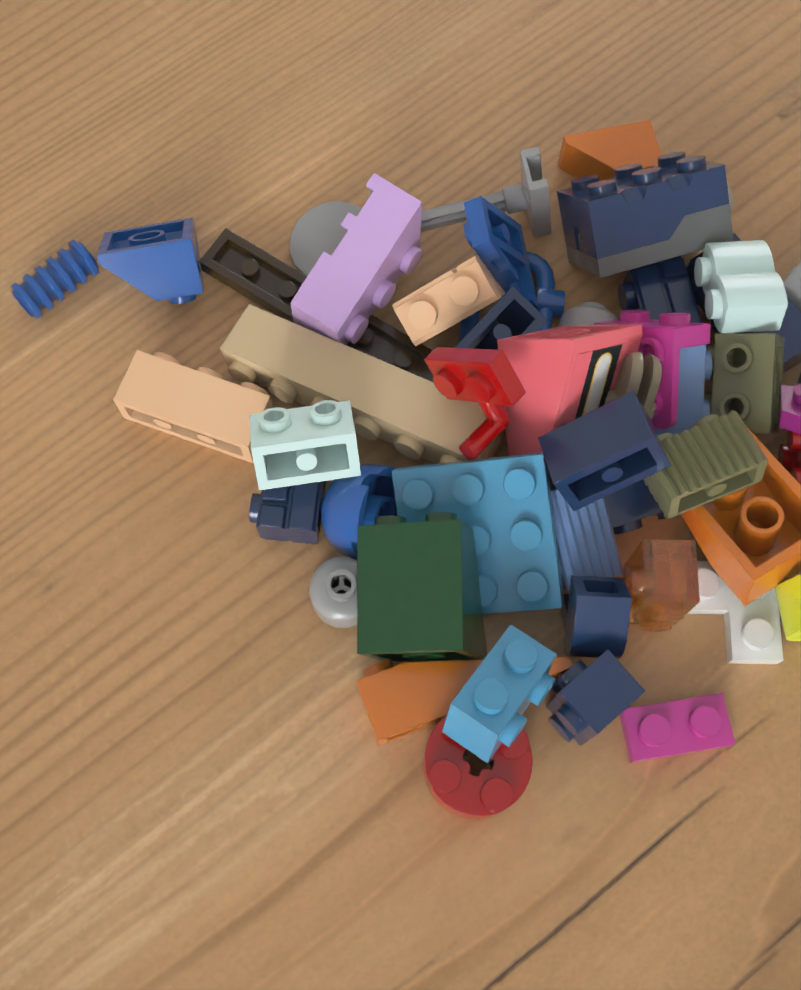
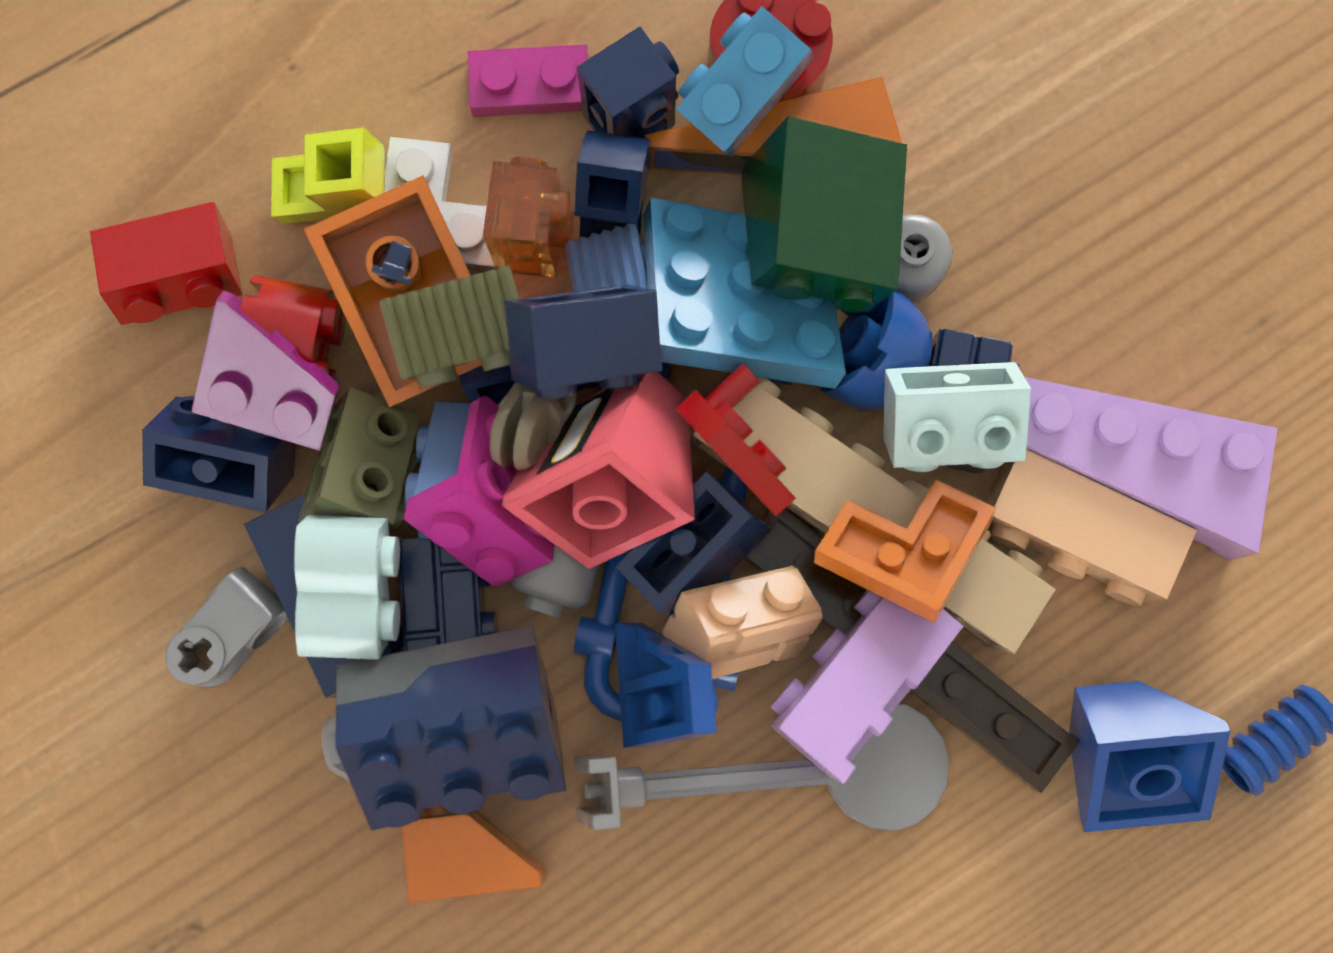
camera: 175 degrees left, 10 degrees up
(146, 456) = (1169, 458): none -> lavender wedge
(332, 329) = (912, 564): none -> orange plate
(759, 506) = (395, 264): none -> dark blue piece

